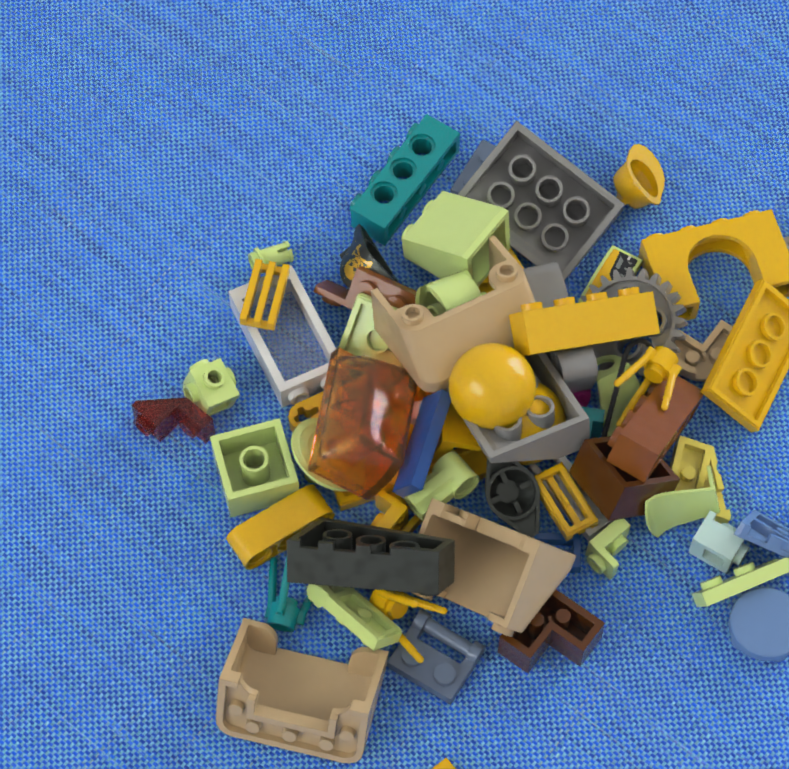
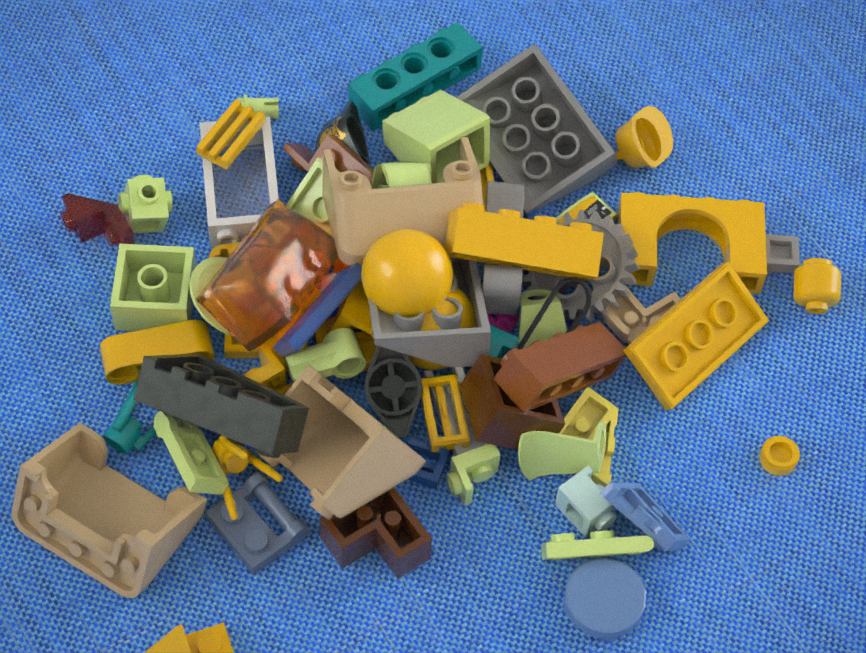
camera: 15 degrees right, 5 degrees down
(659, 365) = (587, 310): yellow plant -> none

